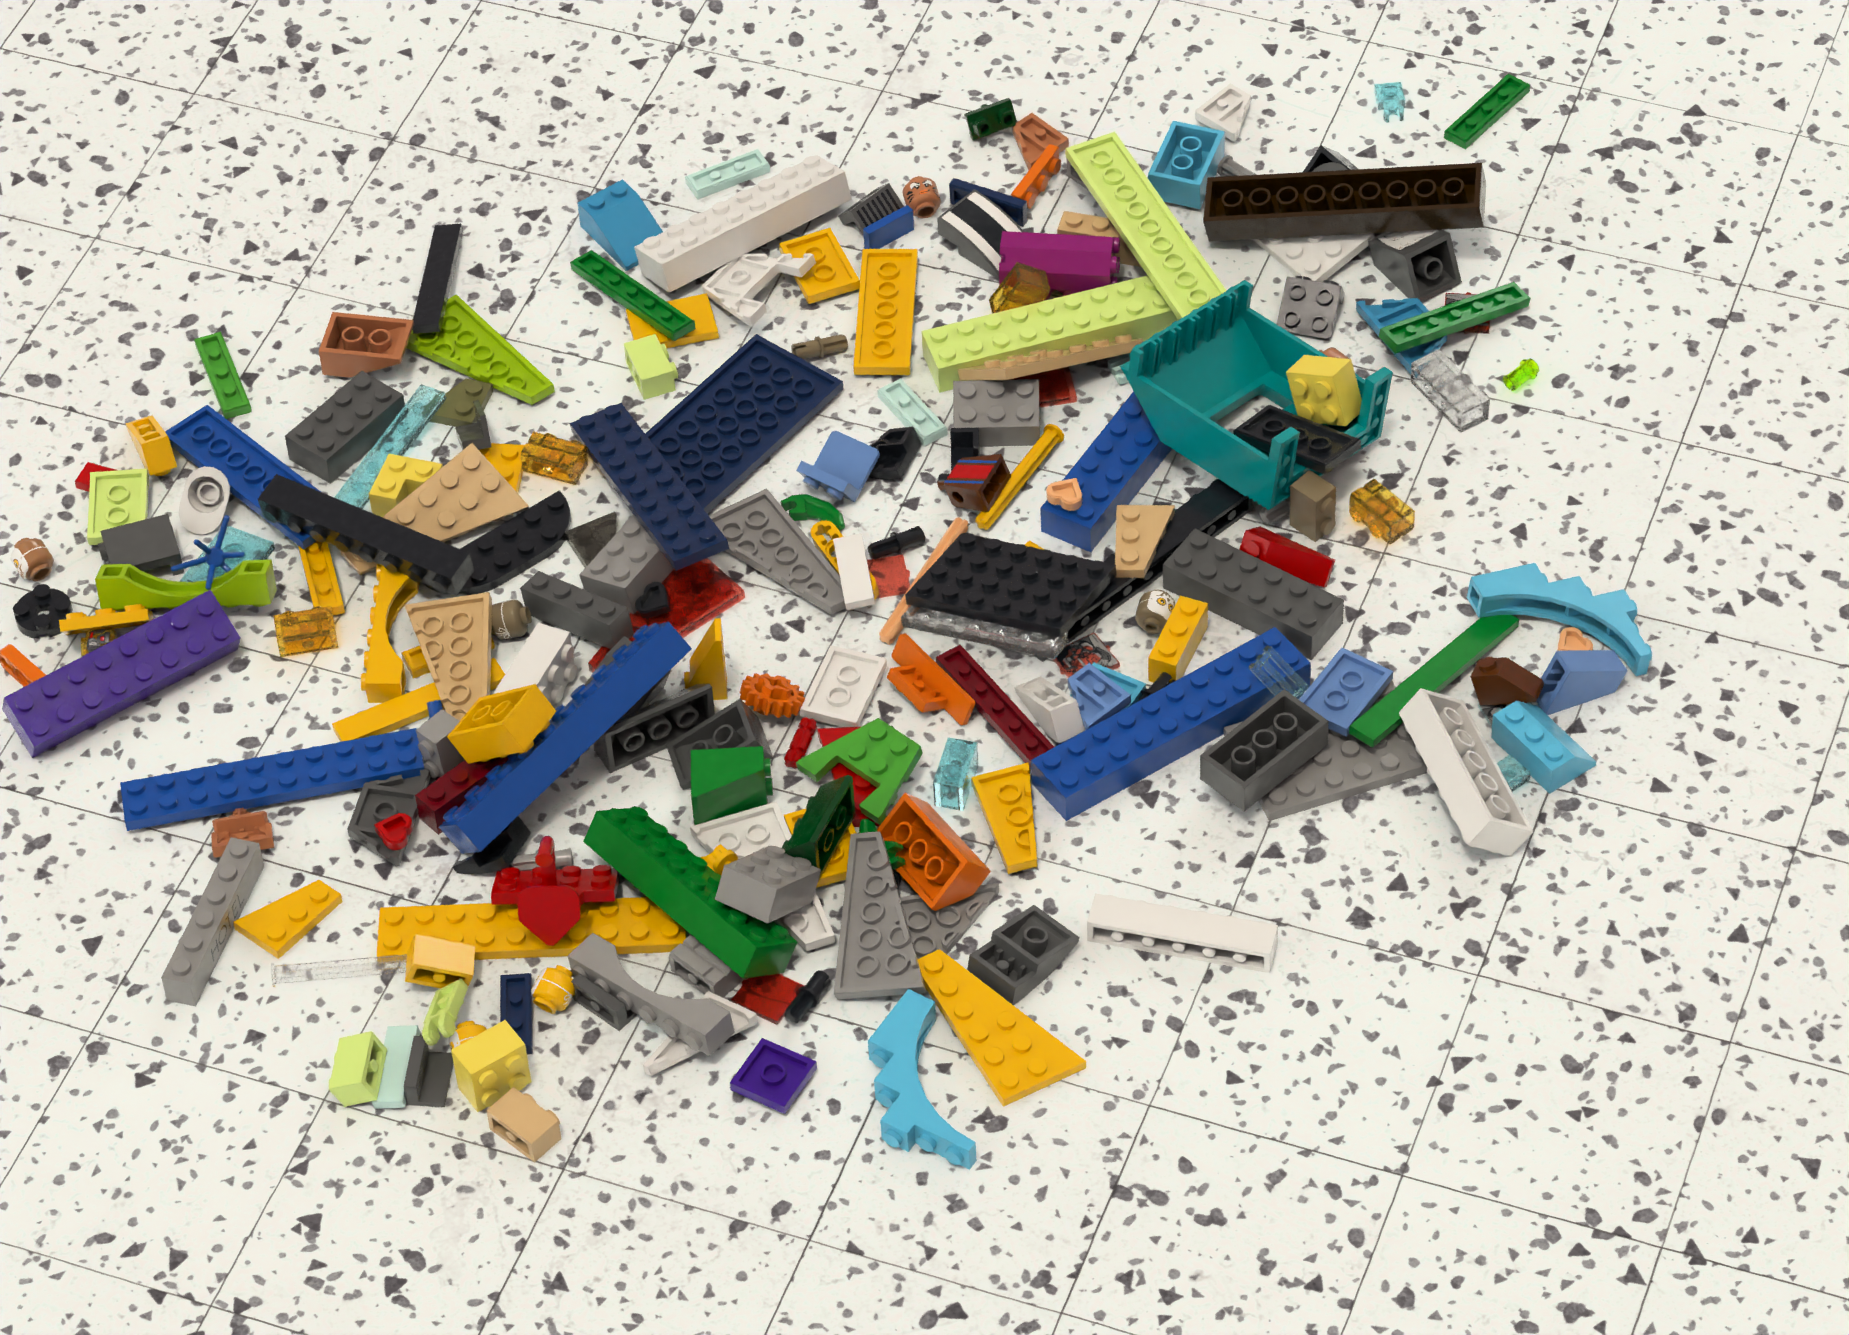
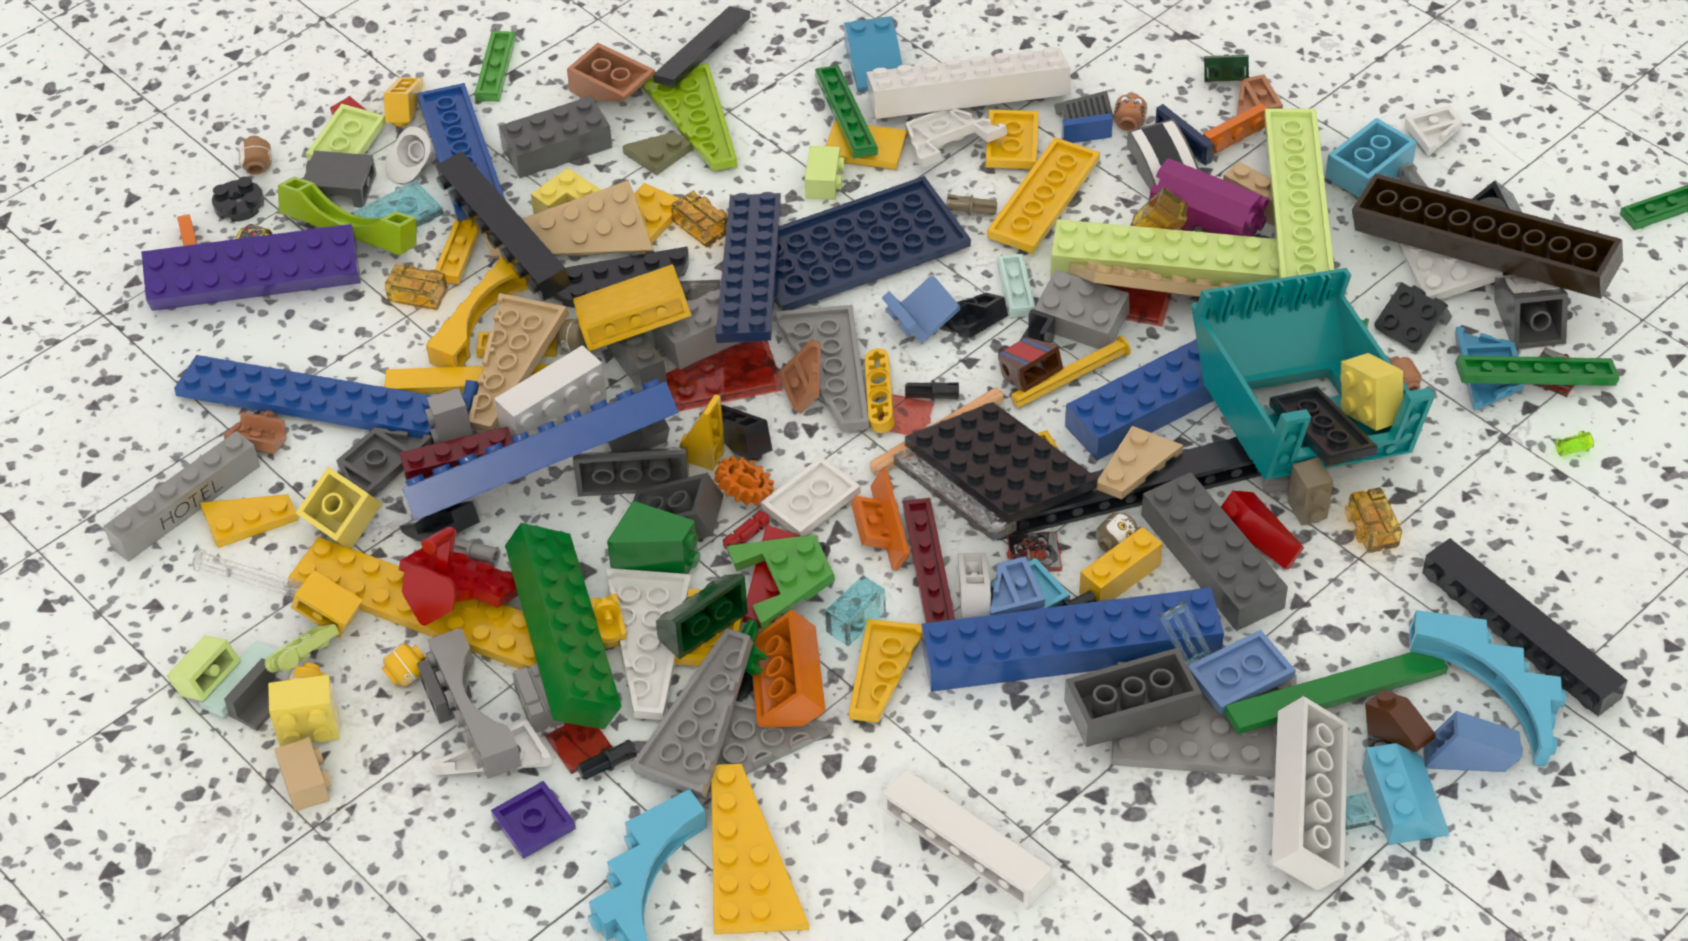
camera: 25 degrees right, 0 degrees up
(105, 618) = (266, 219): yellow plate -> none
(213, 556) = (381, 201): blue plant -> none
(390, 870) = (339, 508): none -> light yellow brick
(395, 441) = (582, 162): clear light blue tile -> none
(395, 830) = (369, 476): red tile -> none
(476, 432) = (650, 177): dark grey panel -> none
(502, 724) = (488, 418): yellow brick -> none
(517, 1006) = (363, 674): dark blue tile -> none
(559, 567) = (631, 307): none -> yellow panel
(654, 601) = (698, 365): black tile -> none
(727, 174) = (985, 42): light aqua tile -> none
(744, 649) = (745, 433): none -> black slope
(764, 576) = (802, 376): none -> nougat wing
(768, 884) = (620, 644): light grey brick -> none
(807, 506) = (879, 332): green piece -> none
(854, 571) = (877, 401): white tile -> none
(1022, 954) = (813, 798): dark grey slope -> none
(1065, 493) = (1091, 400): light nougat tile -> none
(1390, 99) = (1588, 165): clear light blue plate -> none
(1450, 390) = (1499, 434): clear brick -> none
(1564, 556) = (1524, 626): none -> black brick
(1572, 639) = (1489, 709): light nougat tile -> none

